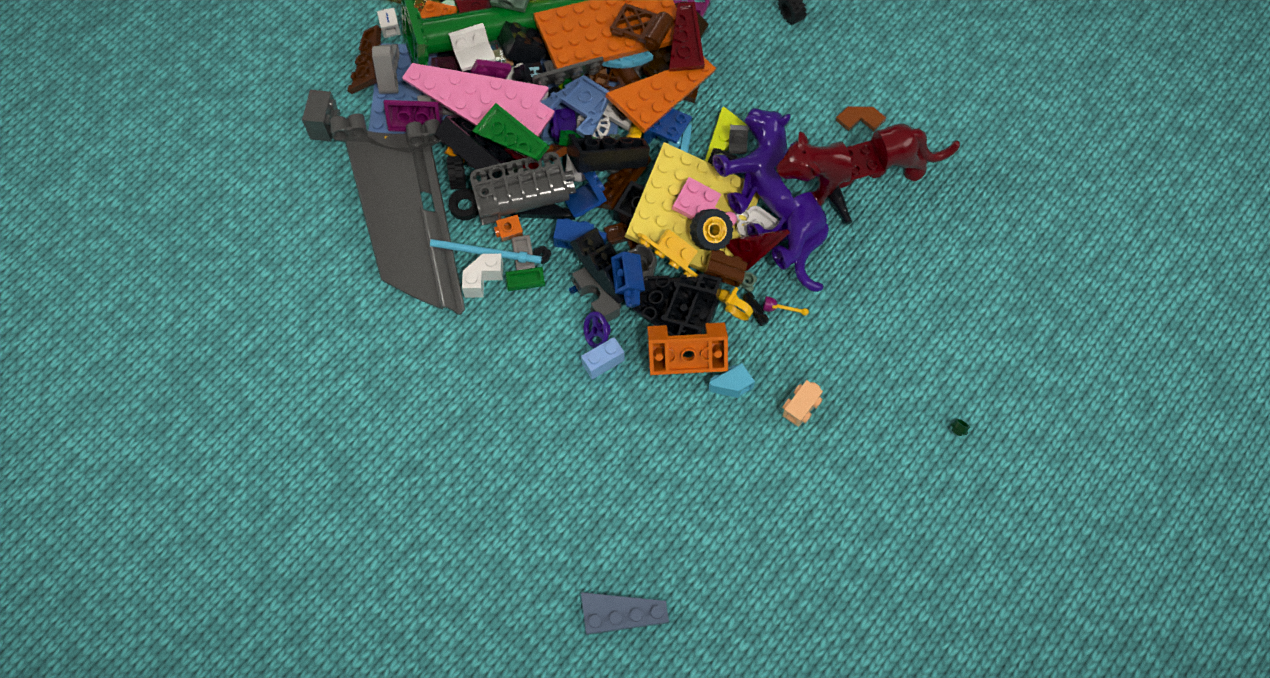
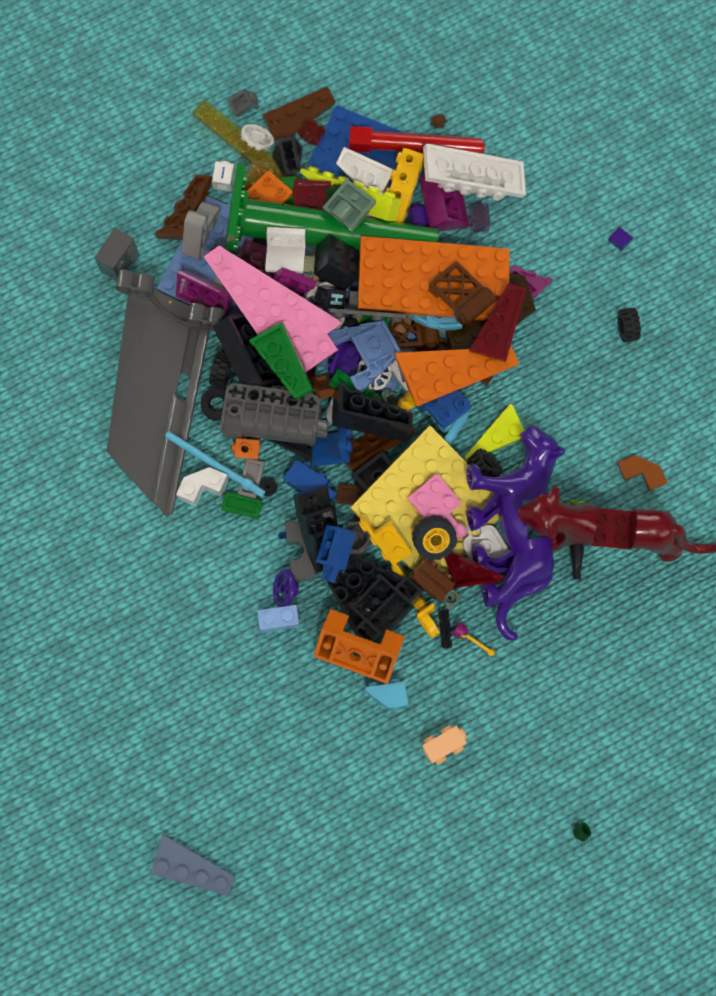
camera: 20 degrees right, 10 degrees up
(738, 139) = (506, 449): dark grey bracket -> none

